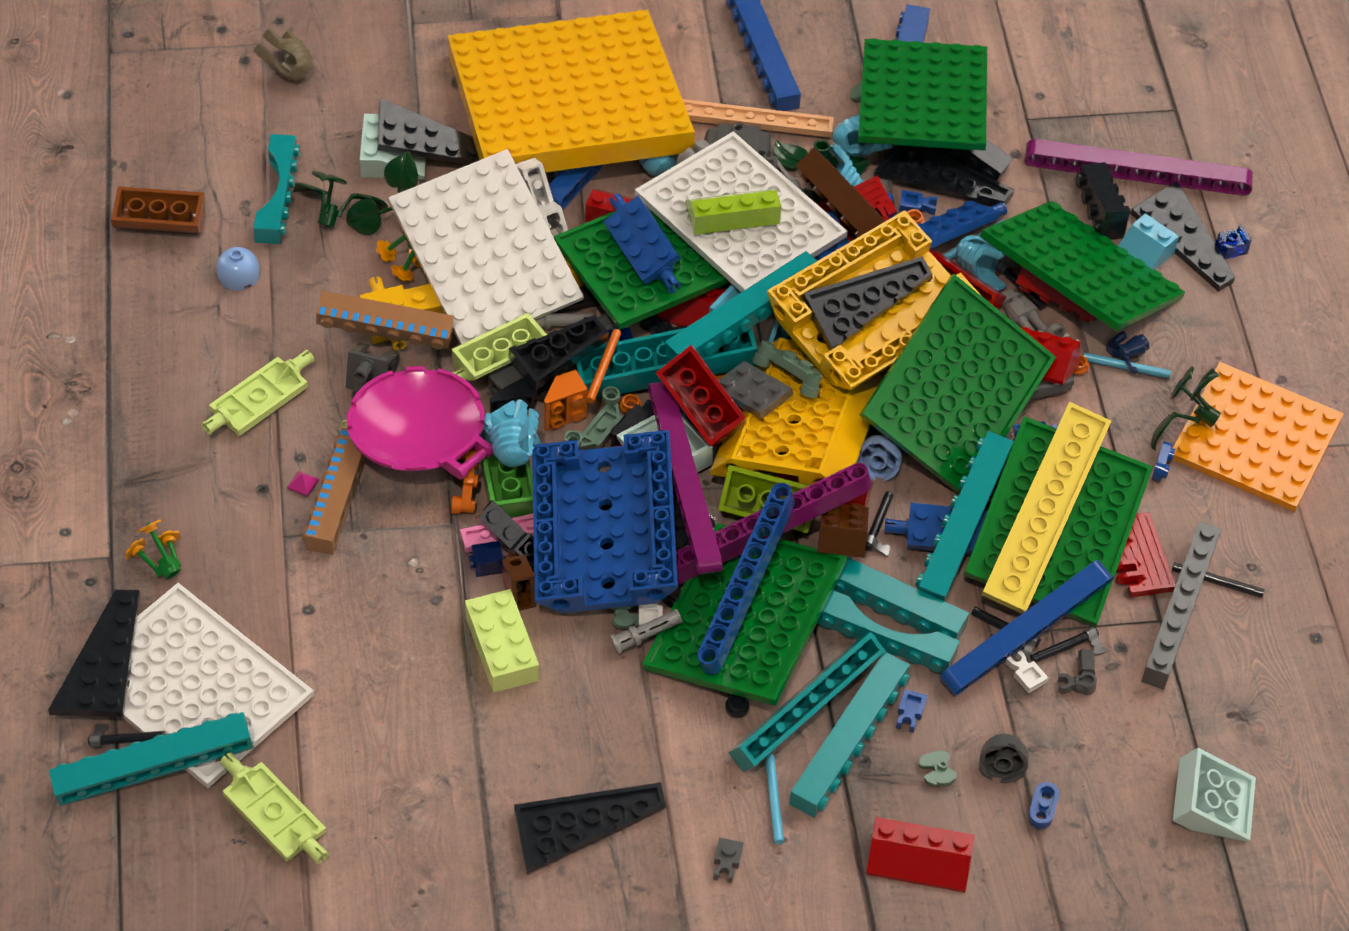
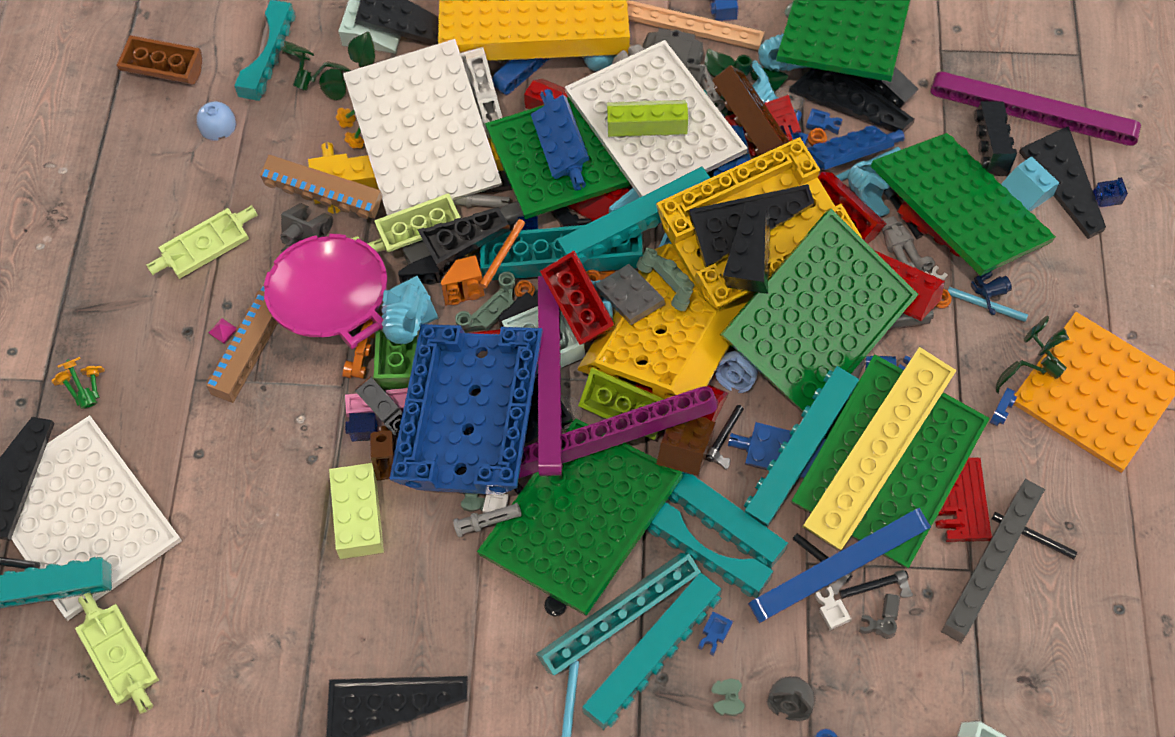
camera: 15 degrees right, 10 degrees up
(748, 587) = (581, 497): blue beam -> none
(877, 329) = (749, 253): none -> black wedge

